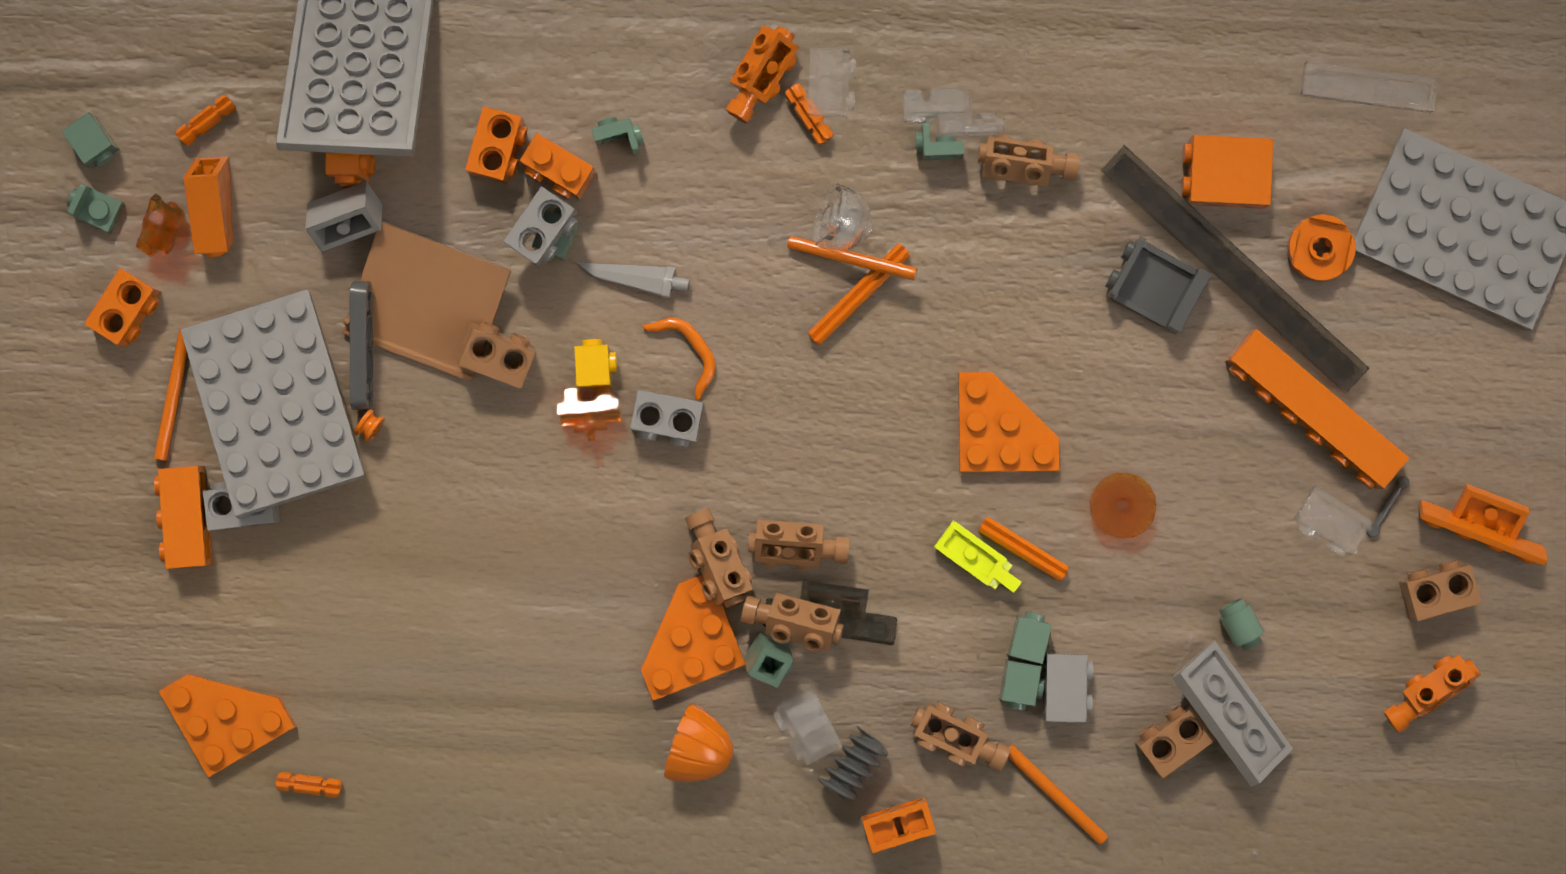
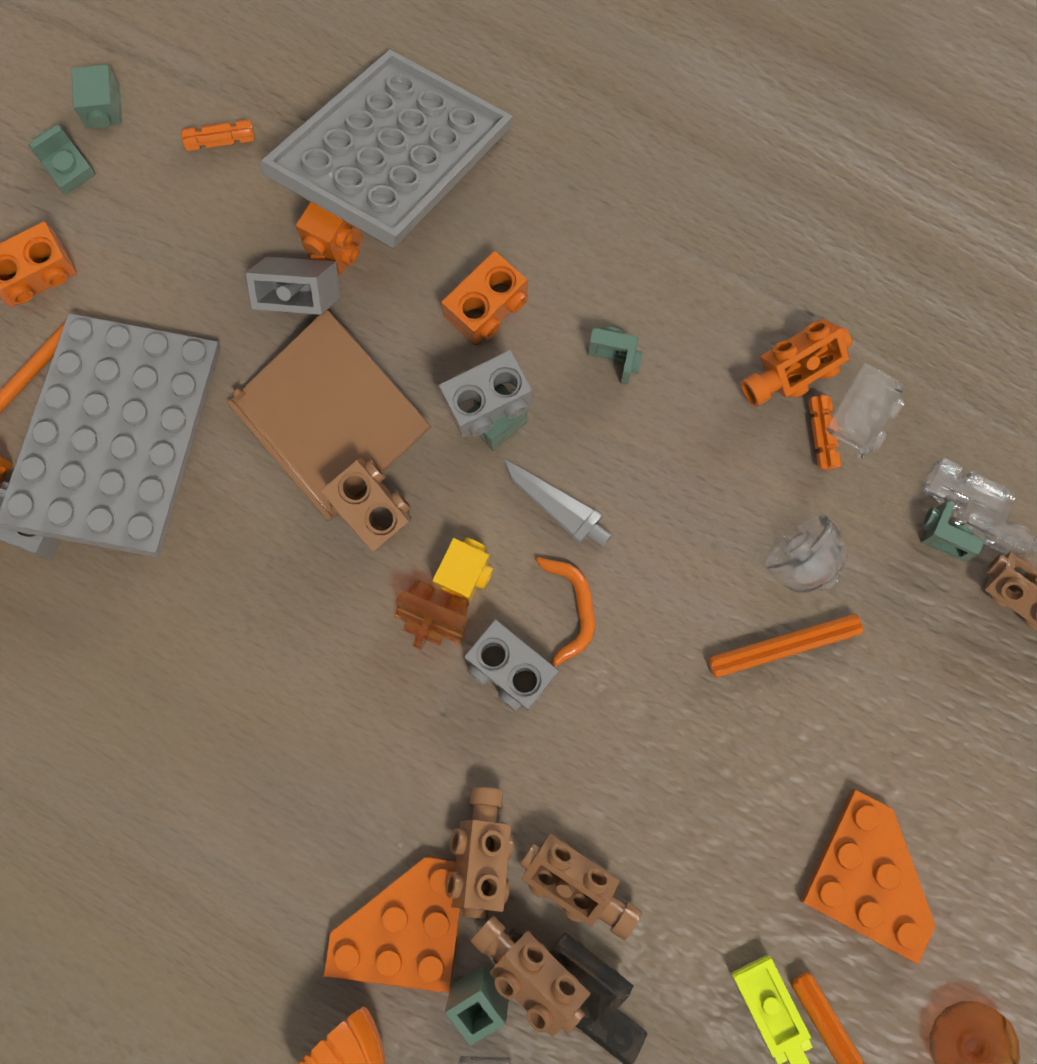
camera: 30 degrees right, 10 degrees down
(160, 226) = (110, 204): clear orange hips -> none
(210, 205) = (169, 211): orange slope -> none
(361, 345) = (235, 422): dark grey beam -> none
(369, 425) = (196, 508): orange bush -> none
(557, 166) = (537, 349): orange brick -> none
(854, 258) = (801, 605): orange bar -> none

